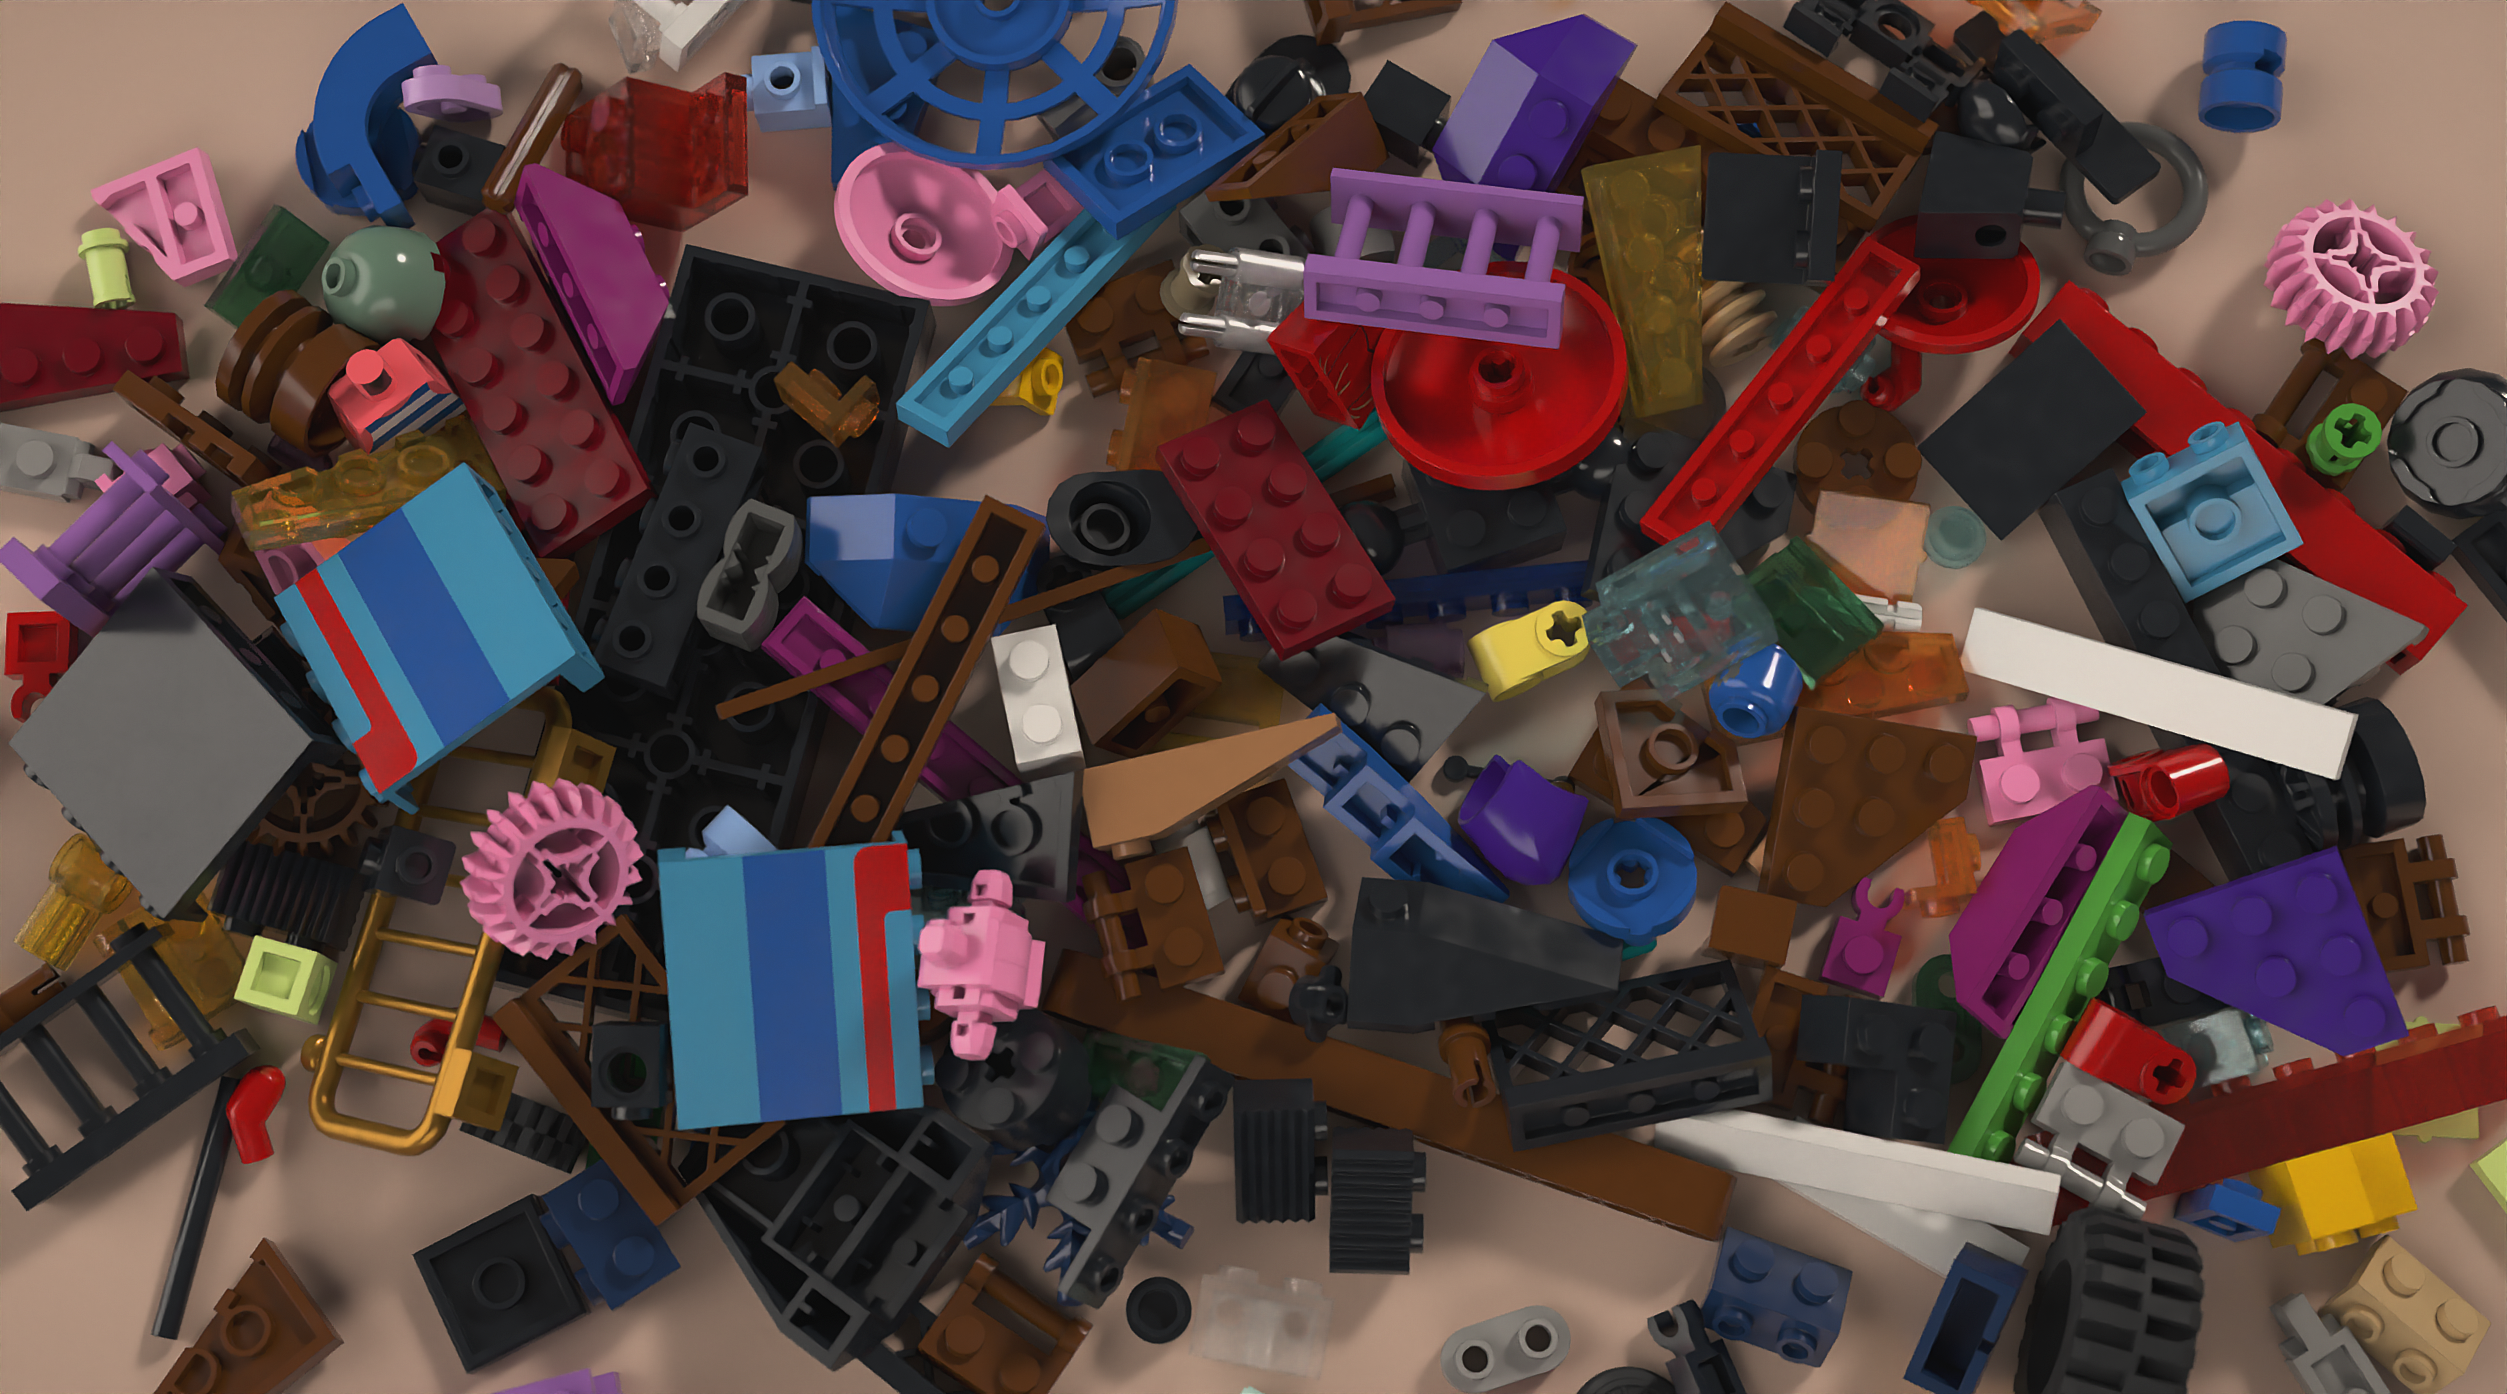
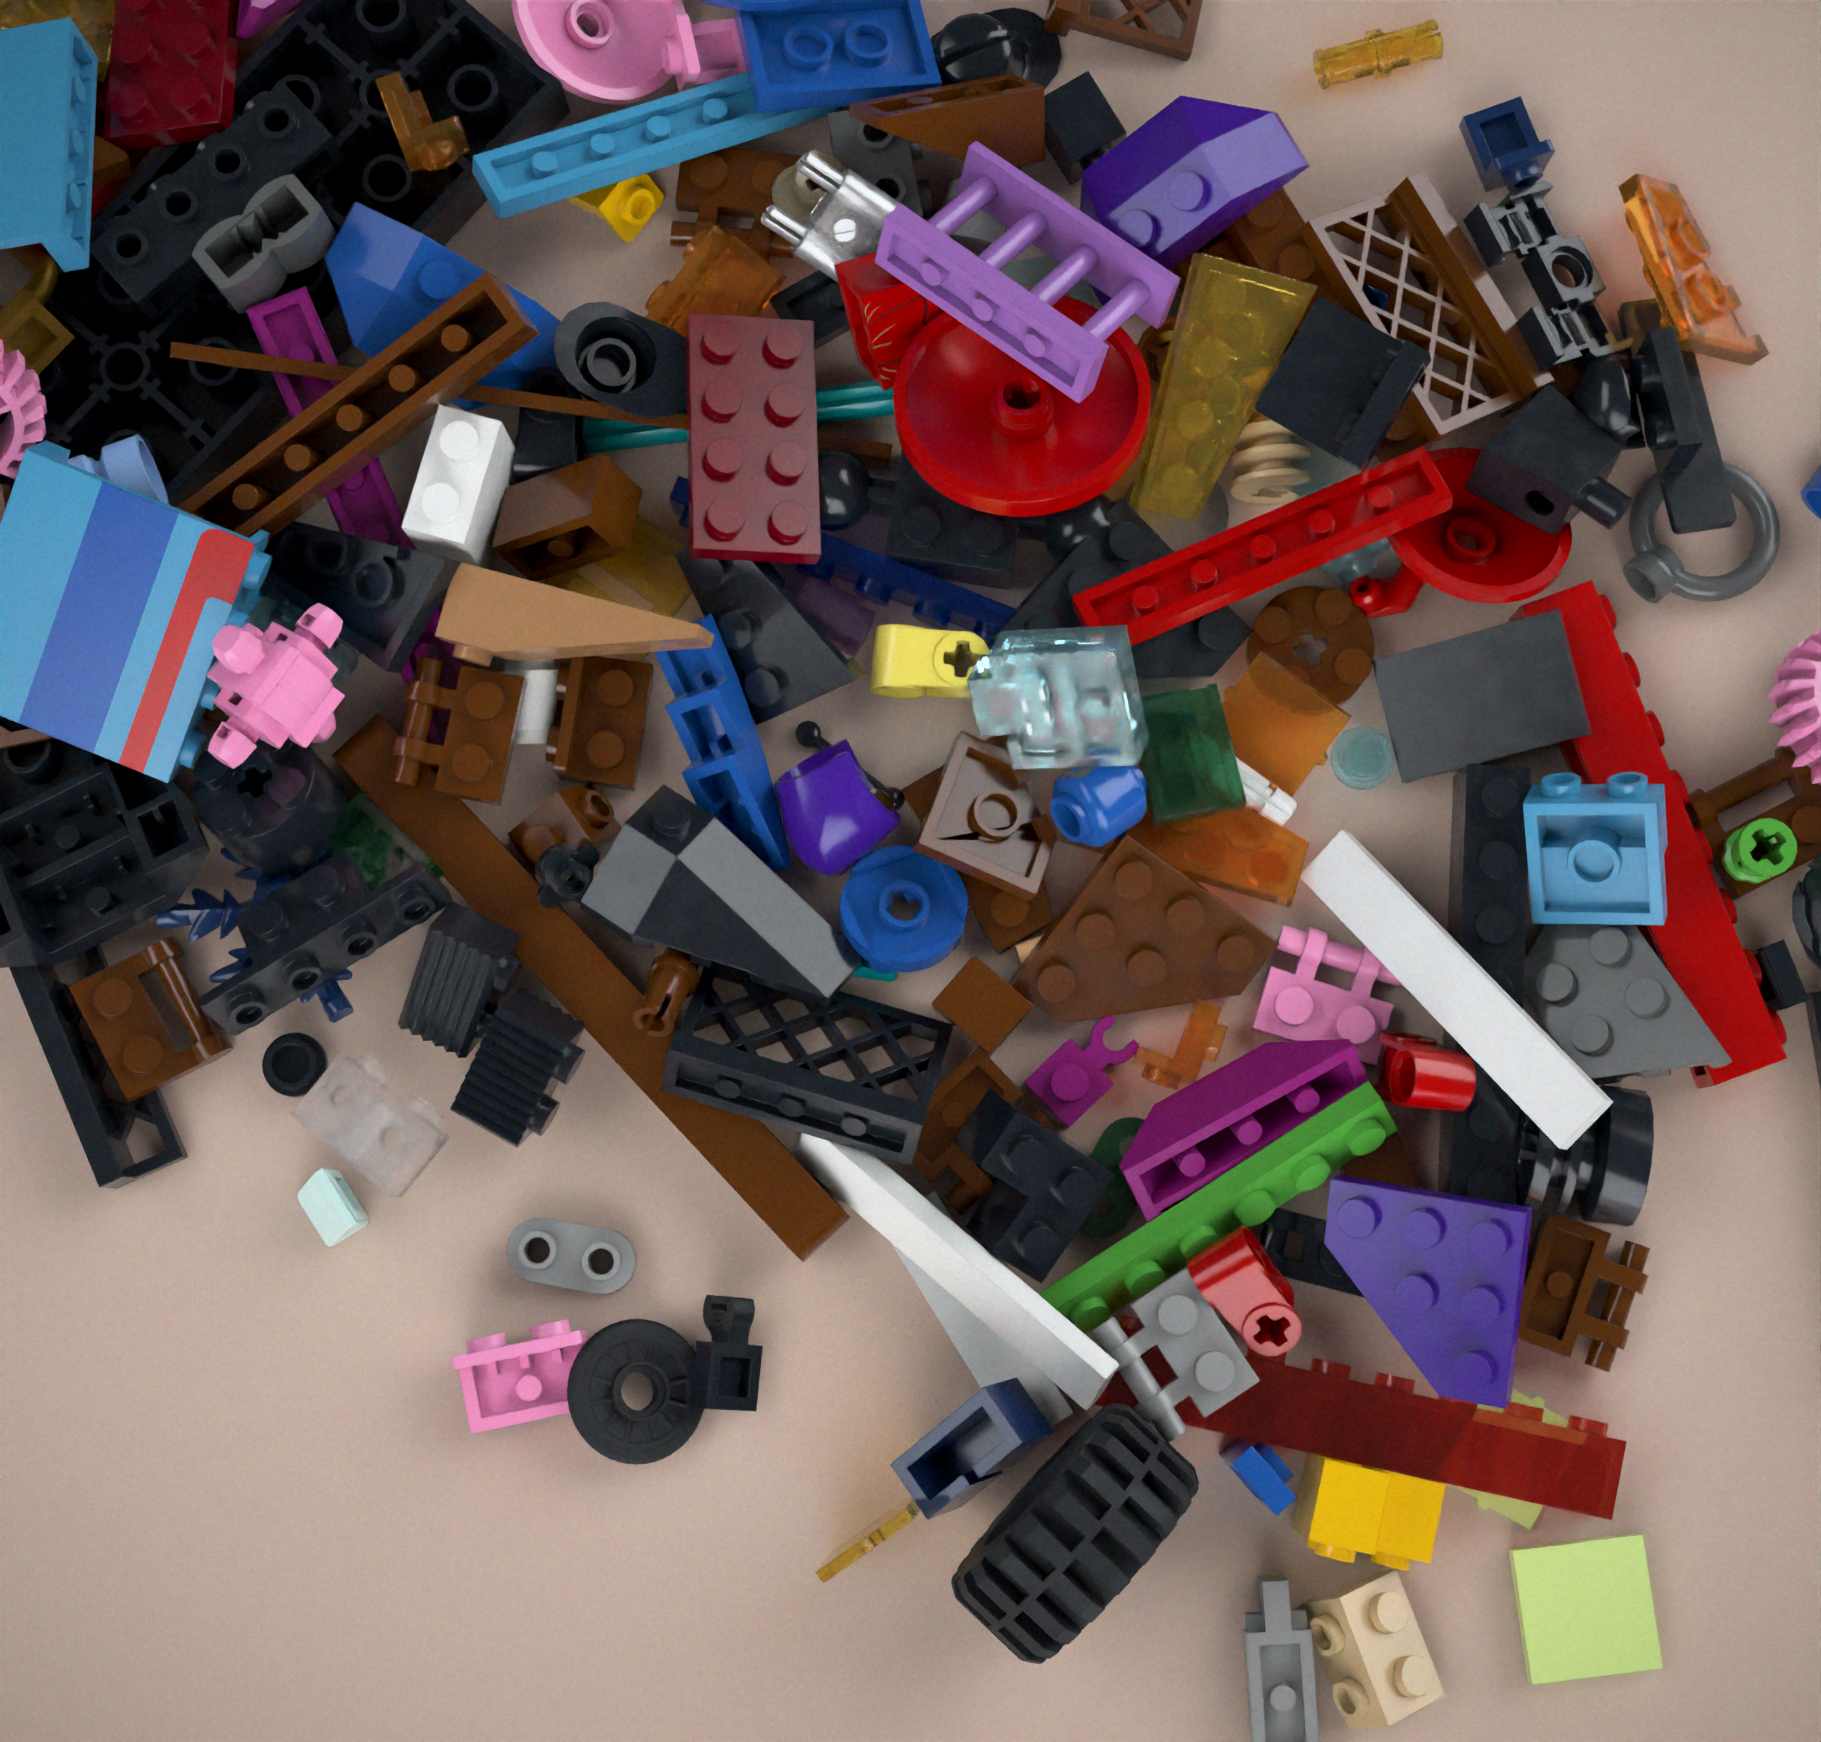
camera: 30 degrees right, 5 degrees up
(1775, 1298) = (826, 1336): dark blue bracket -> none
(2223, 1044) = (1340, 1329): clear light blue bracket -> none

